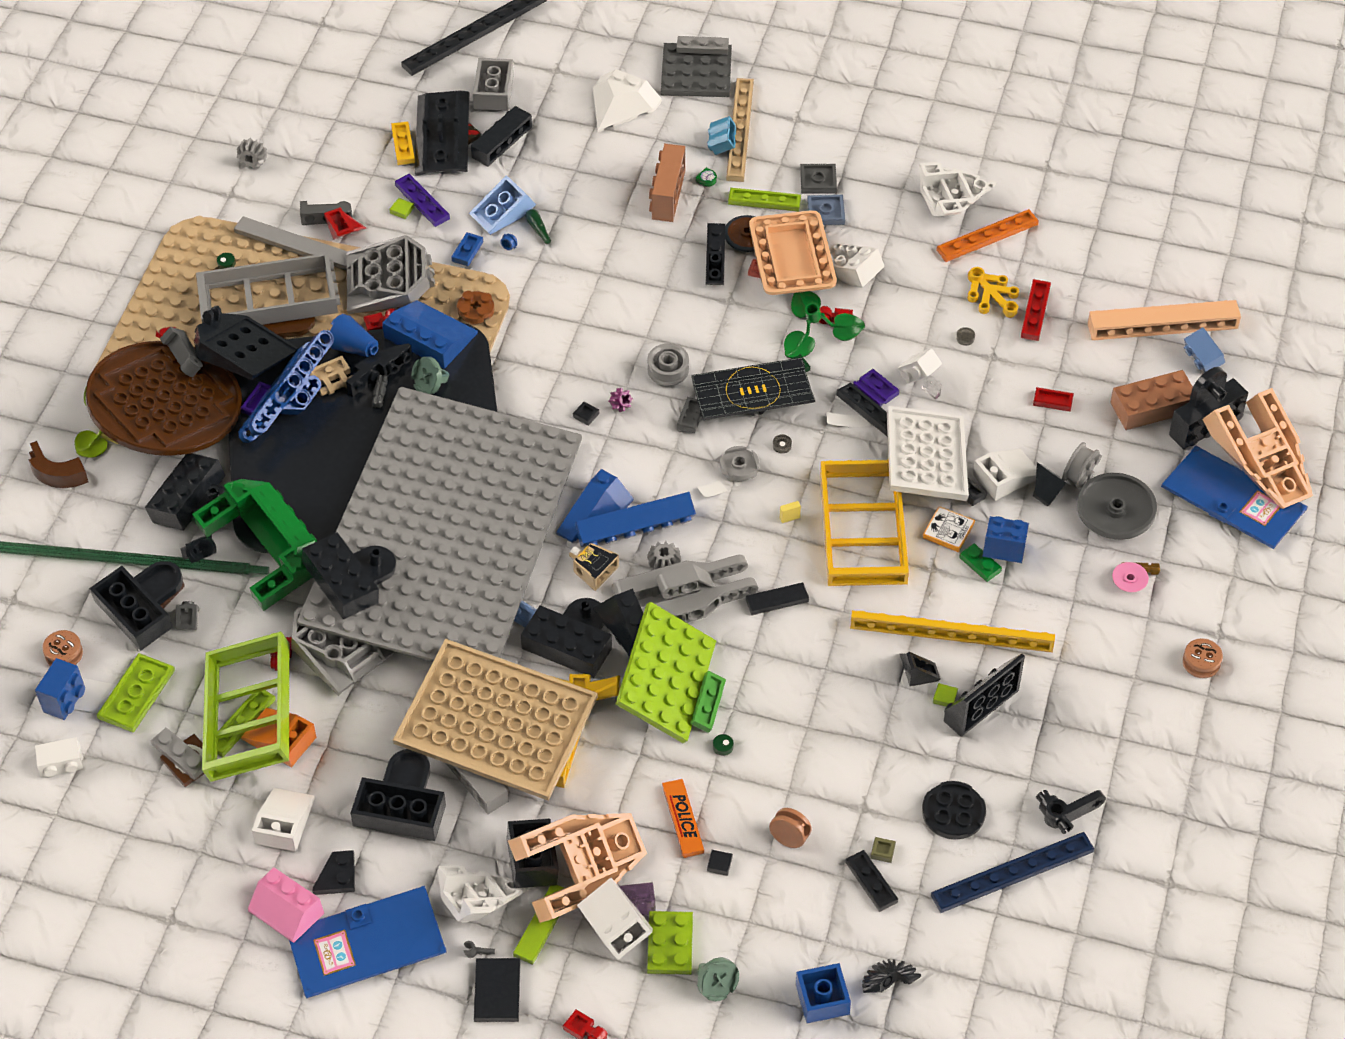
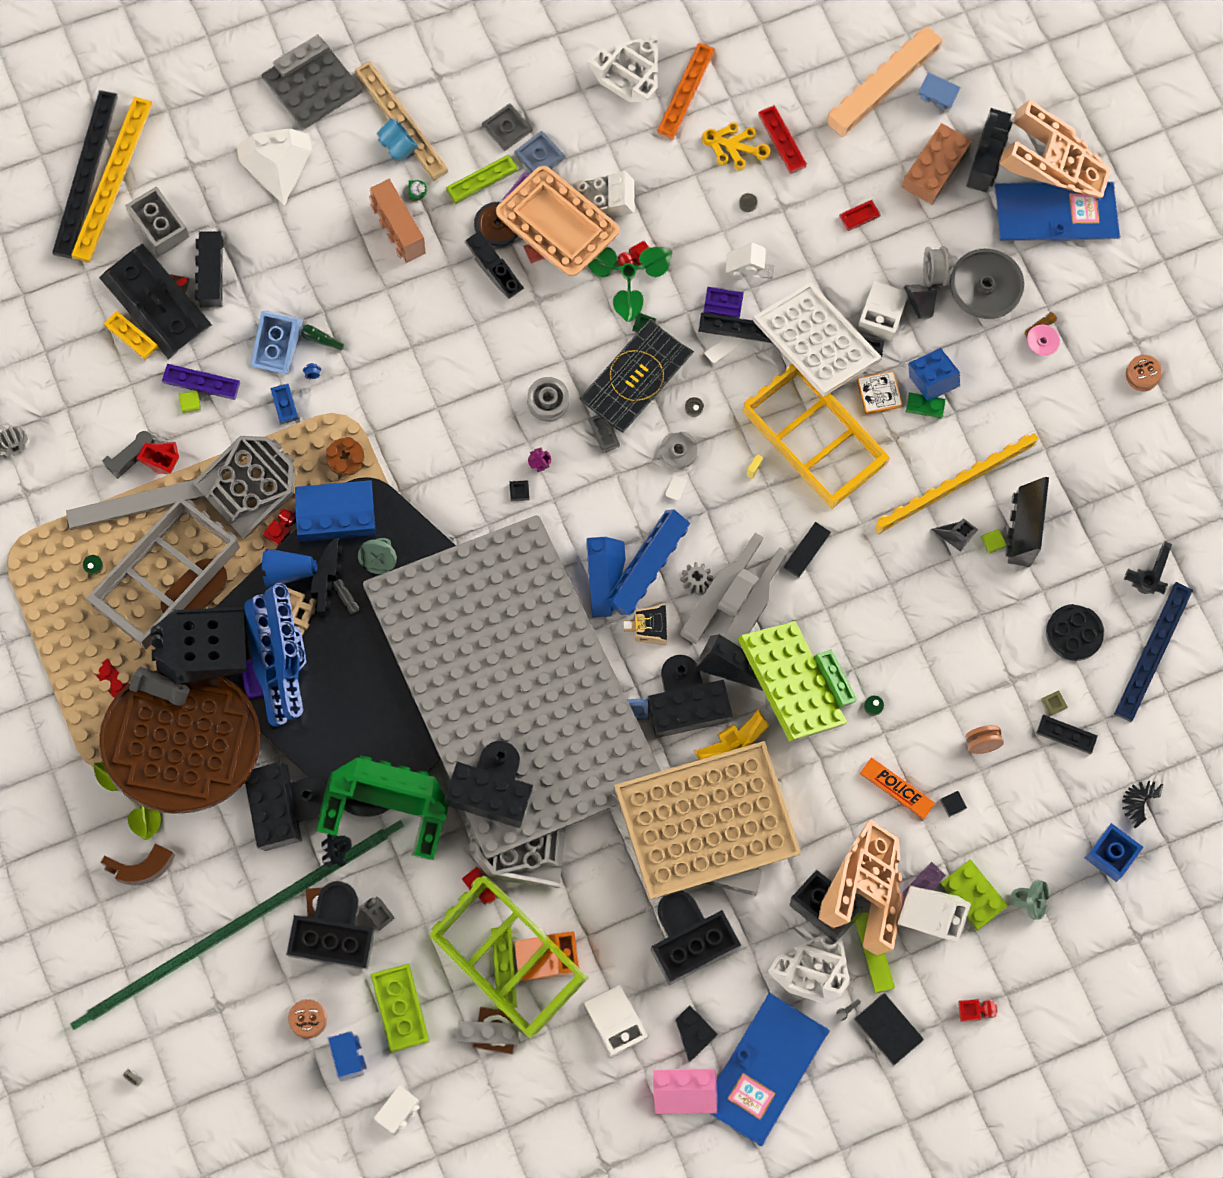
camera: 45 degrees left, 20 degrees up
(489, 45) = (111, 180): none -> yellow plate

